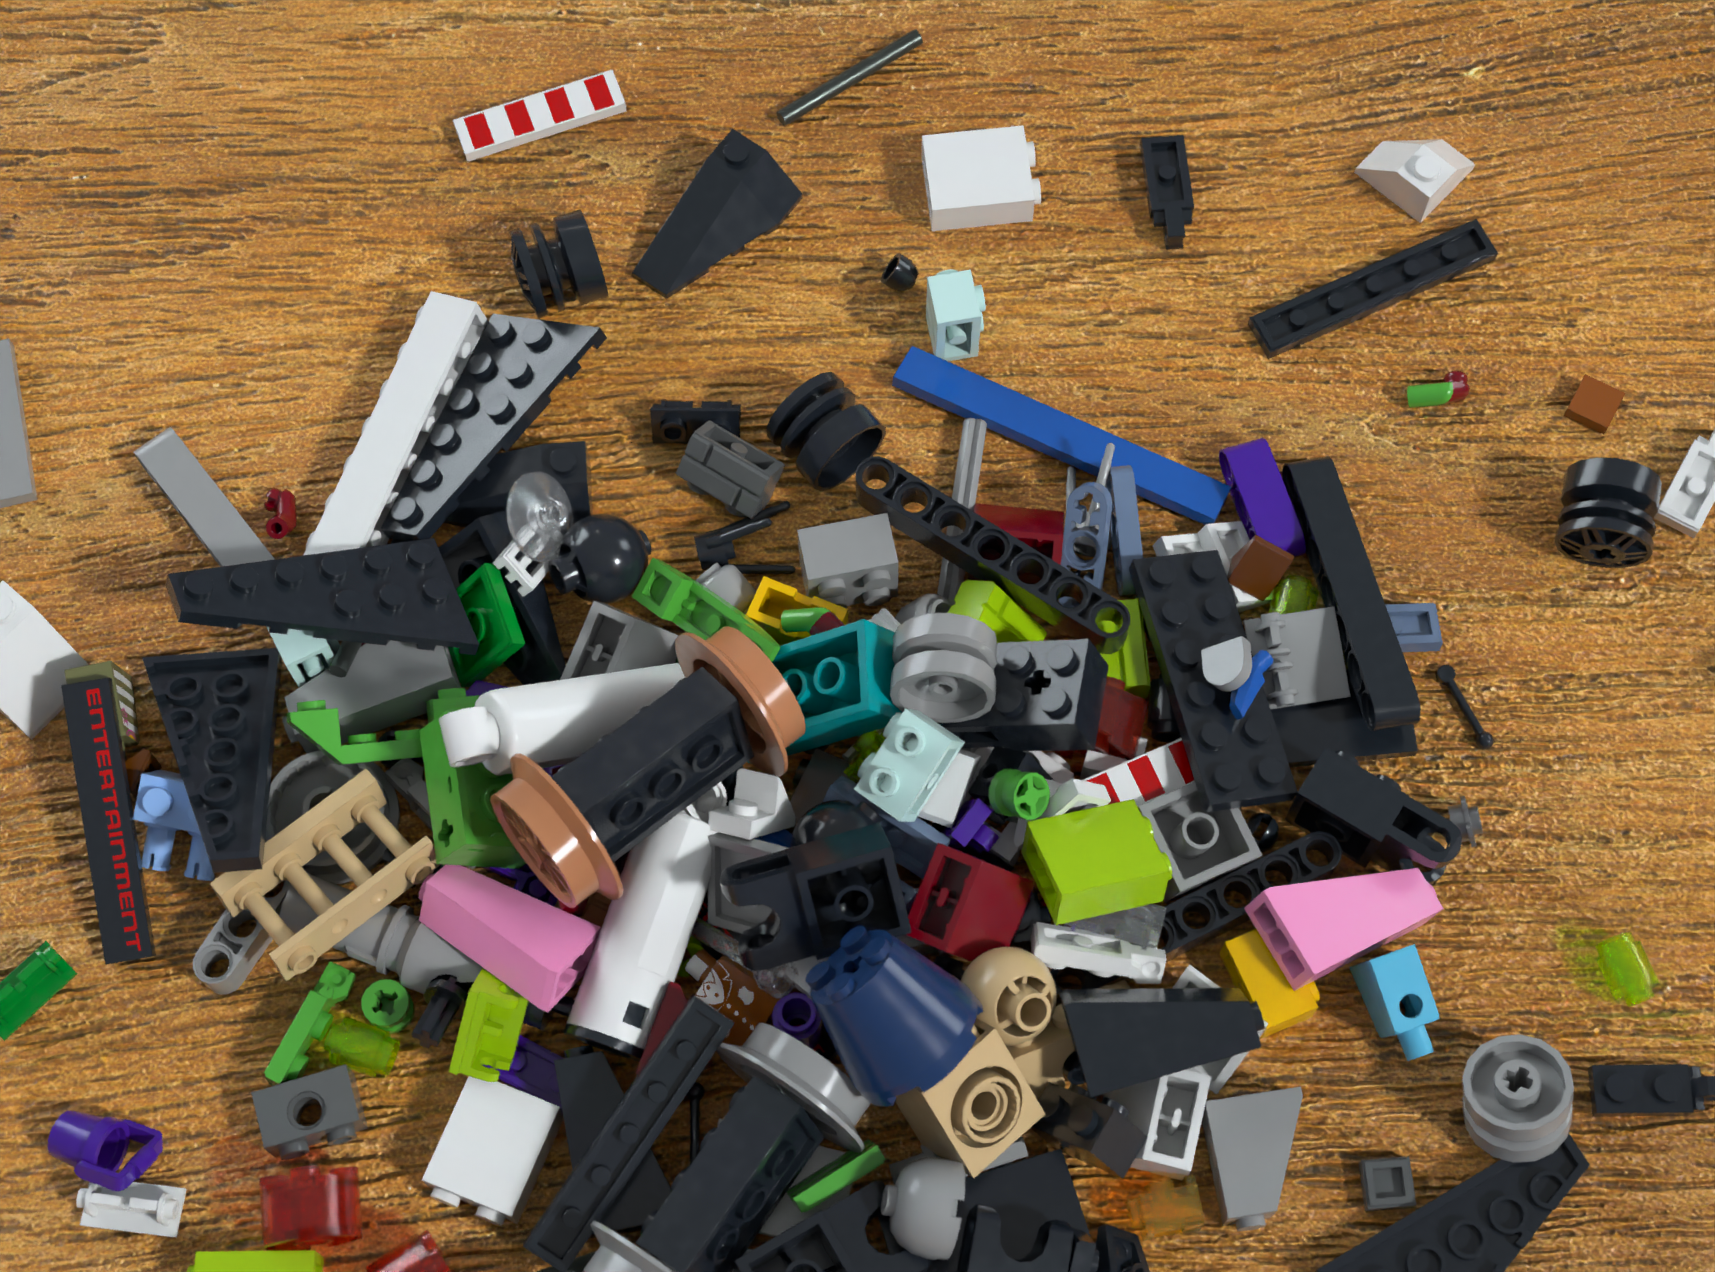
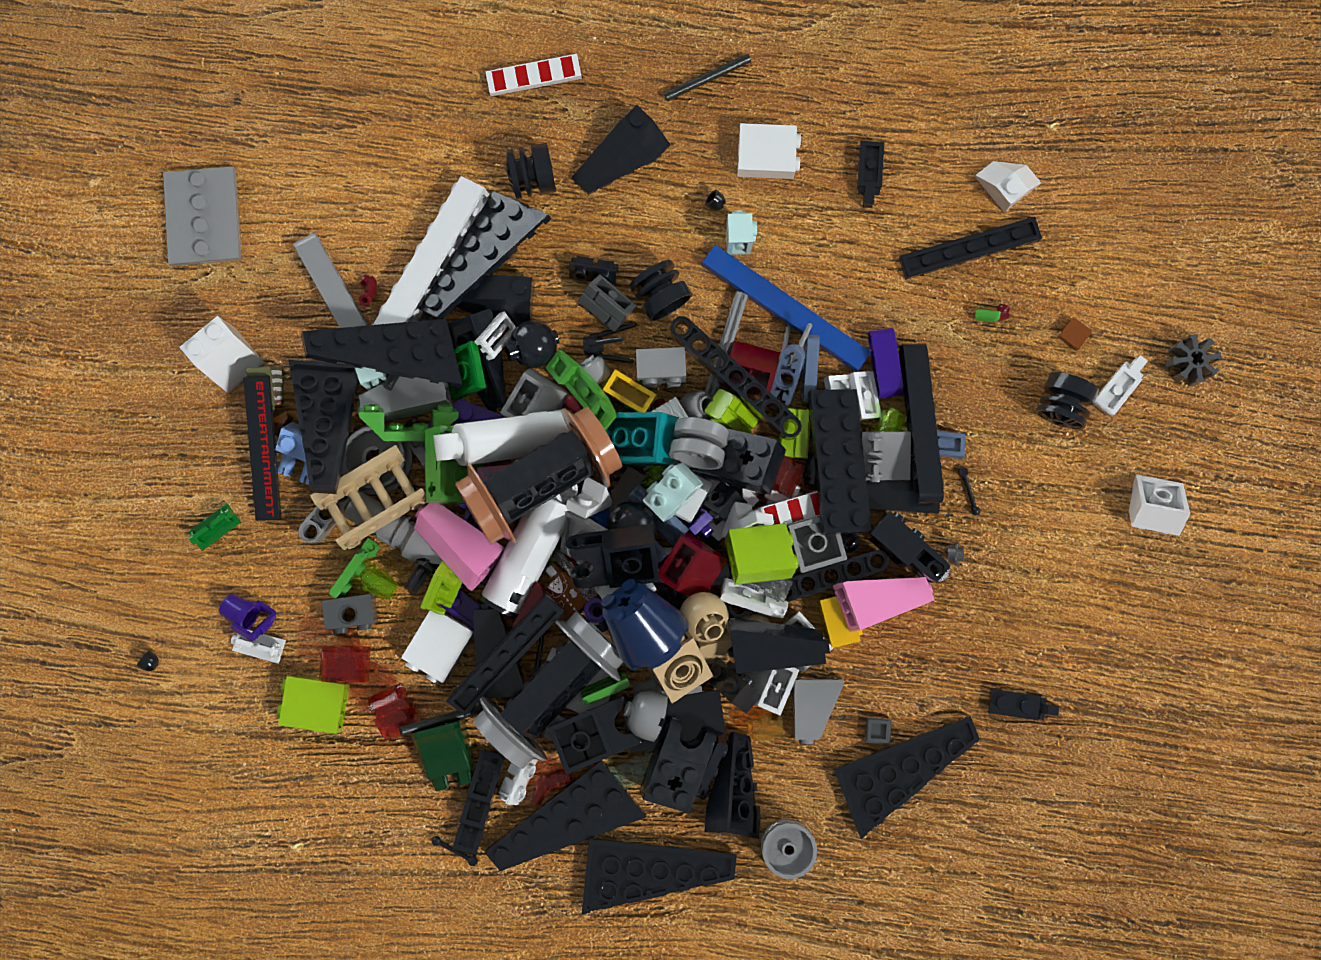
camera: 10 degrees right, 15 degrees up
(394, 1014) = (398, 563): bright green wheel -> none
(538, 515) = (502, 318): clear dish -> none
(810, 620) = (638, 401): bright green arm -> none
(1019, 794) = (727, 513): bright green wheel -> none
(1227, 663) = (847, 459): light grey tile -> none
(1244, 695) = (856, 469): blue bar -> none
(1258, 567) = (875, 402): reddish brown slope -> none
(1393, 980) = (899, 632): medium azure torso -> none
(1517, 1098) = (963, 707): light grey wheel -> none
(1626, 969) = (1021, 643): clear neon green brick -> none

